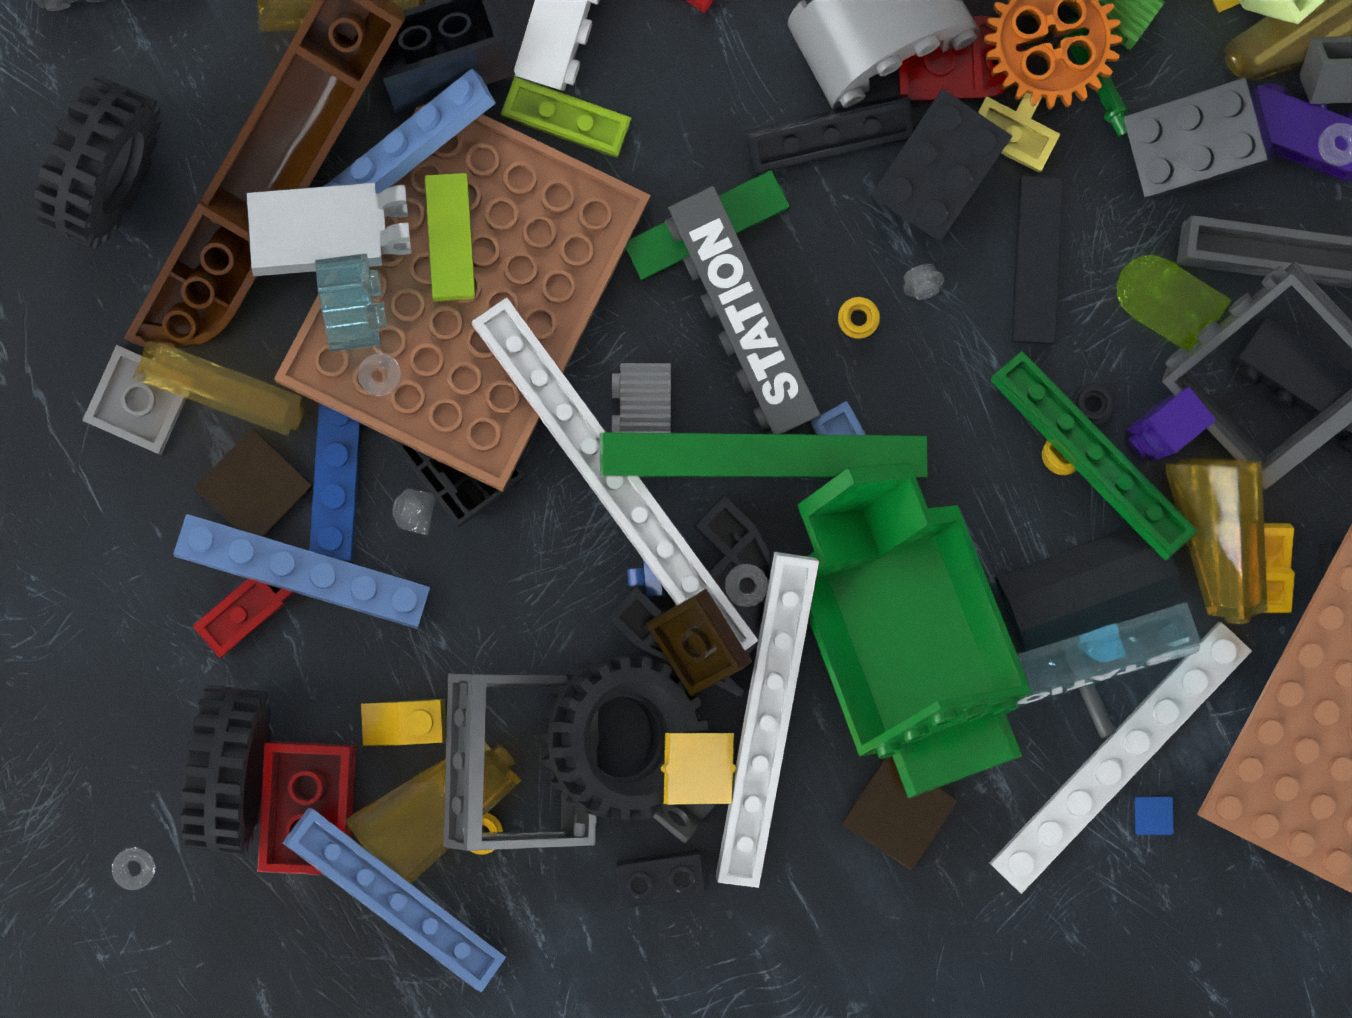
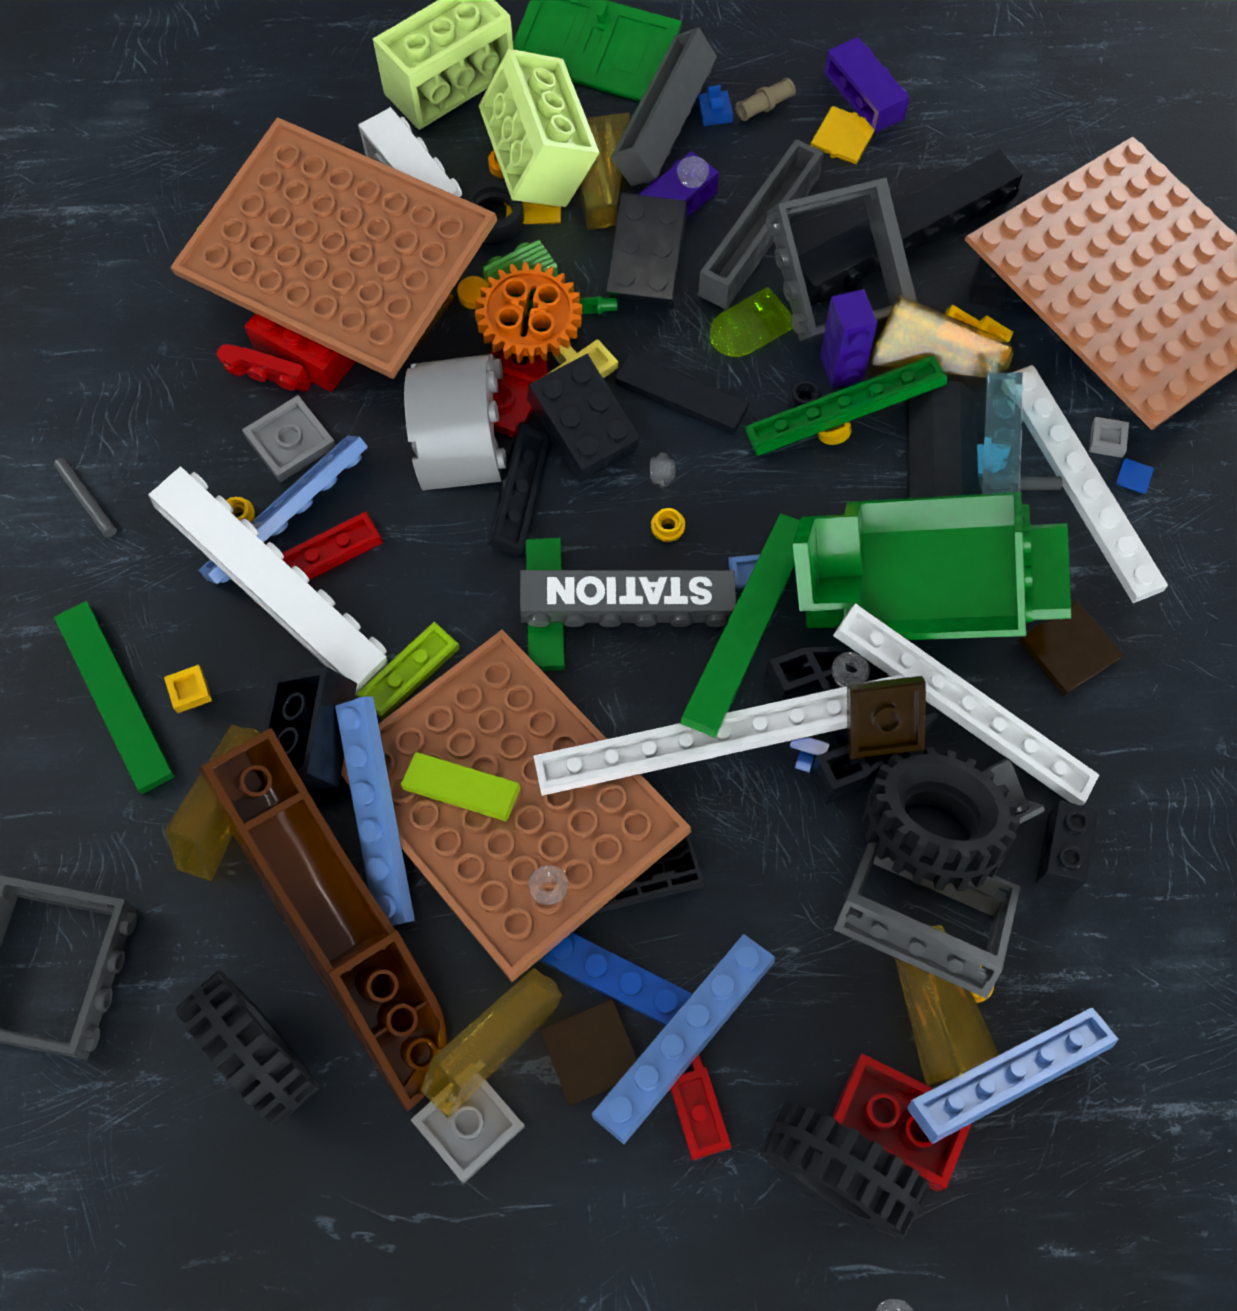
camera: 65 degrees left, 20 degrees down
(324, 222) = (404, 874): tile -> none
(348, 302) = (477, 875): clear light blue brick -> none
(404, 722) = (853, 1006): yellow slope -> none
(414, 510) = (671, 922): clear plate -> none
(643, 397) = (658, 697): light grey brick -> none
(698, 768) = (987, 770): yellow piece -> none
(1192, 769) = (1109, 437): none -> light grey tile

